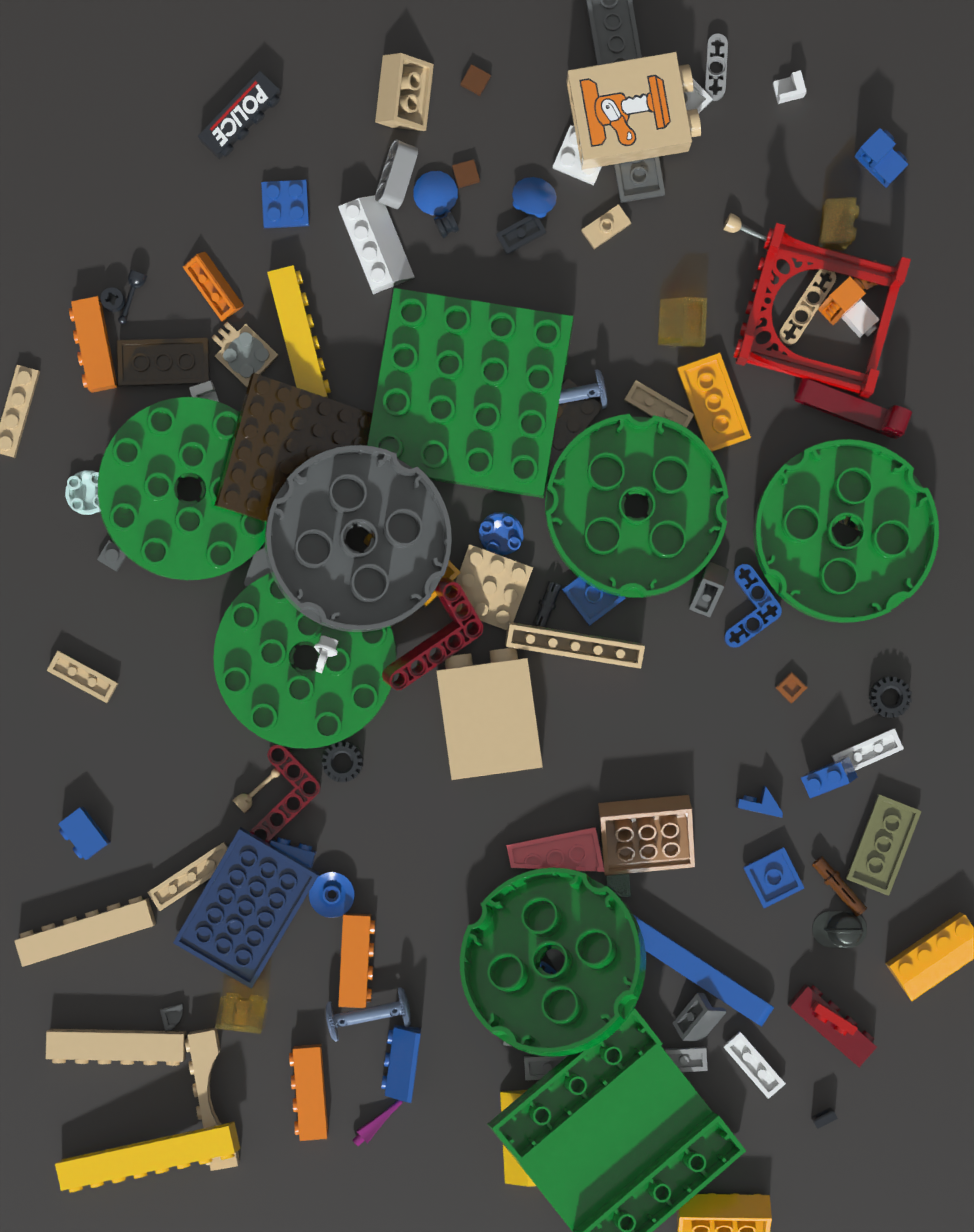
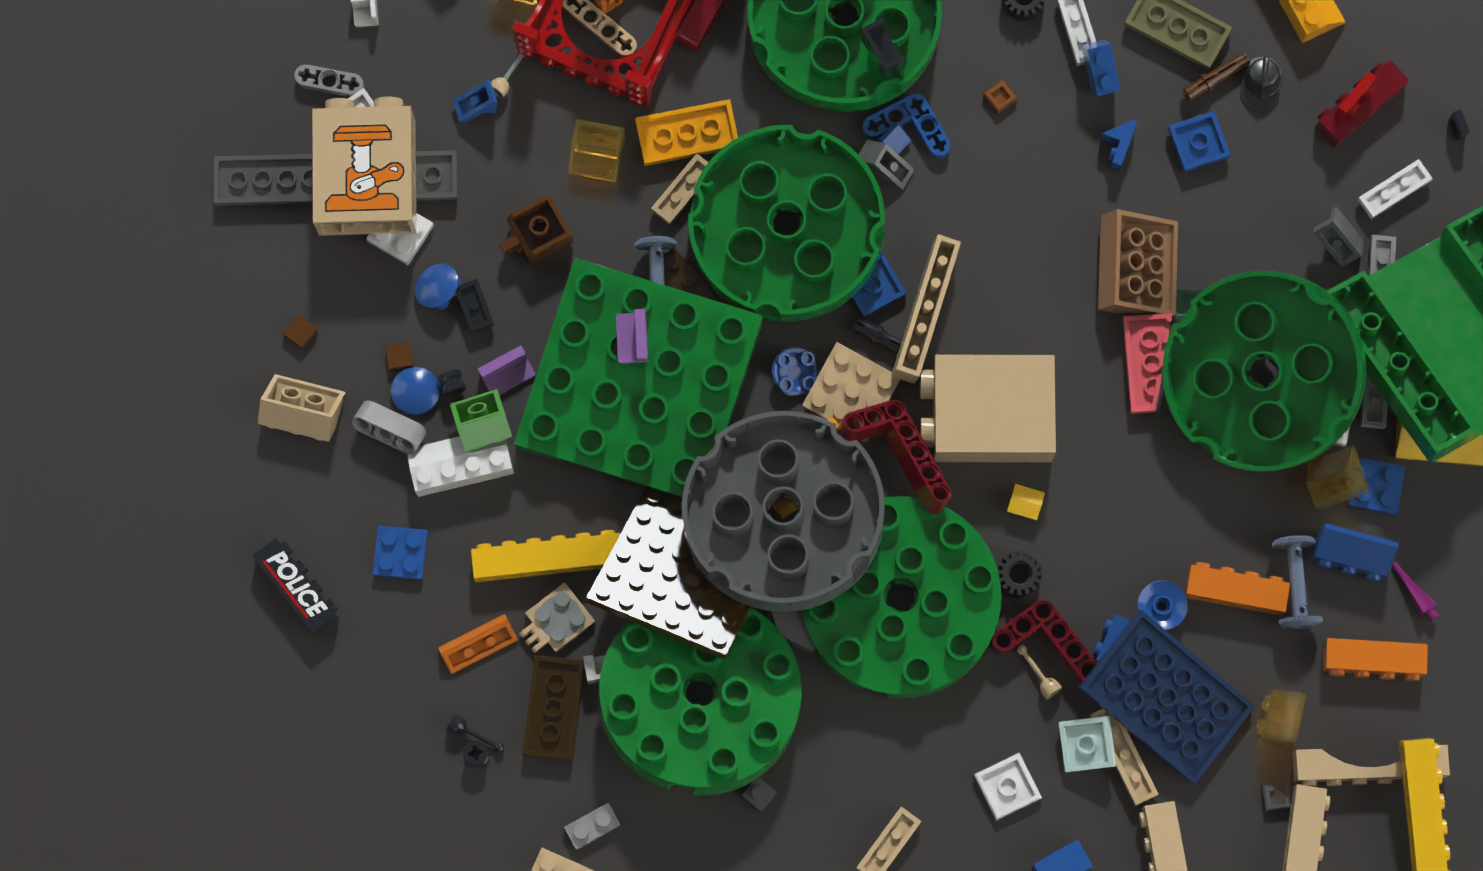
camera: 80 degrees left, 10 degrees down
(64, 412) = (592, 826): none -> light grey plate
(83, 492) = (684, 812): light aqua dish -> none
(94, 344) = (522, 781): orange brick -> none
(150, 776) = (1007, 786): none -> white tile
(195, 842) = (1087, 744): none -> light aqua plate
(326, 648) = (896, 565): white piece -> none
(409, 759) = (1026, 502): none -> yellow piece
(411, 255) = (481, 420): none -> bright green brick
(463, 273) = (507, 371): none -> medium lavender panel
(468, 1040) = (1336, 478): none -> clear yellow slope
(470, 1076) = (1384, 485): none -> blue plate
(502, 379) = (632, 337): none -> medium lavender panel
(601, 266) = (533, 243): none -> reddish brown hinge
(606, 226) = (481, 217): tan plate -> none
(704, 974) = (1299, 219): blue beam -> none
(713, 203) = (475, 102): none -> blue slope
(734, 595) = (895, 138): none -> blue tile
(812, 570) = (882, 49): none -> black panel

